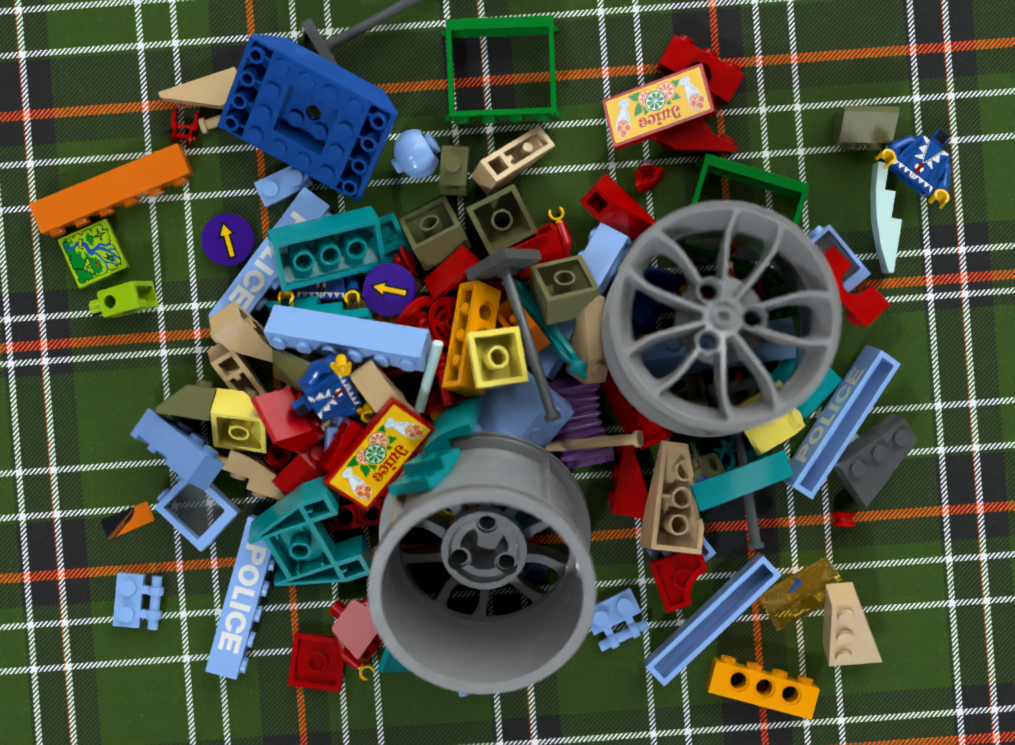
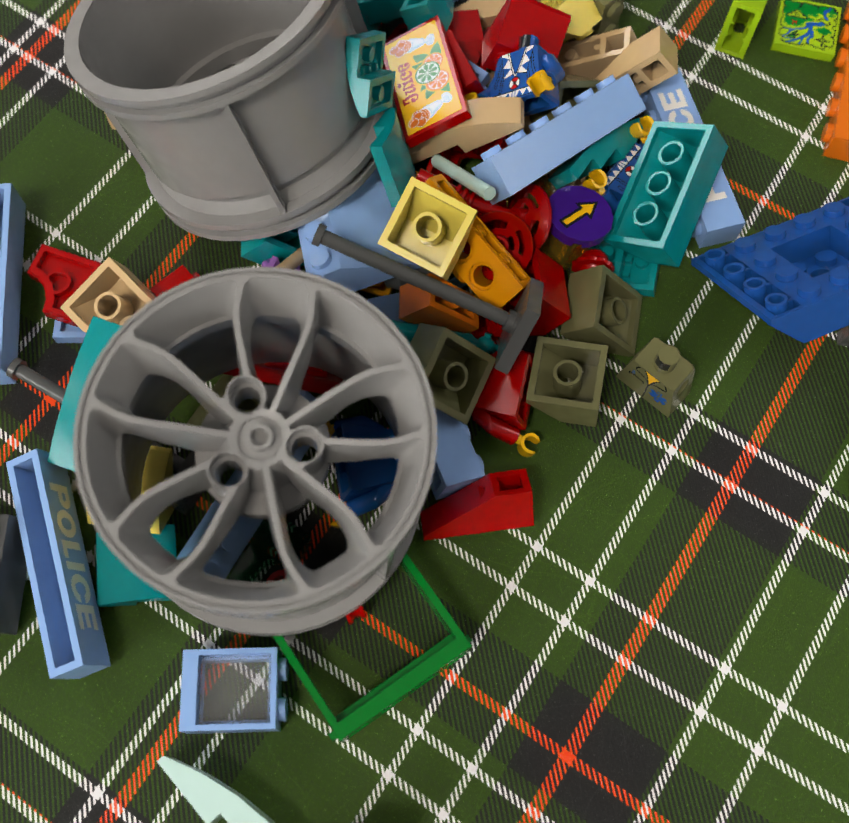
camera: 135 degrees right, 20 degrees down
(228, 239) = (745, 136): dark purple tile -> none
(282, 185) = (758, 210): light blue plate -> none
(415, 154) = (708, 351): light blue plant -> none
(501, 28) = (785, 534): green window -> none
(511, 160) = (623, 442): tan slope -> none
(613, 611) = (95, 211): light blue plate -> none
(648, 177) = (494, 569): red piece -> none
(659, 107) = (566, 639): tile -> none
(696, 139) = (513, 643): red slope -> none
(722, 76) = (607, 716): red arch -> none
(860, 307) = (149, 682): red arch -> none

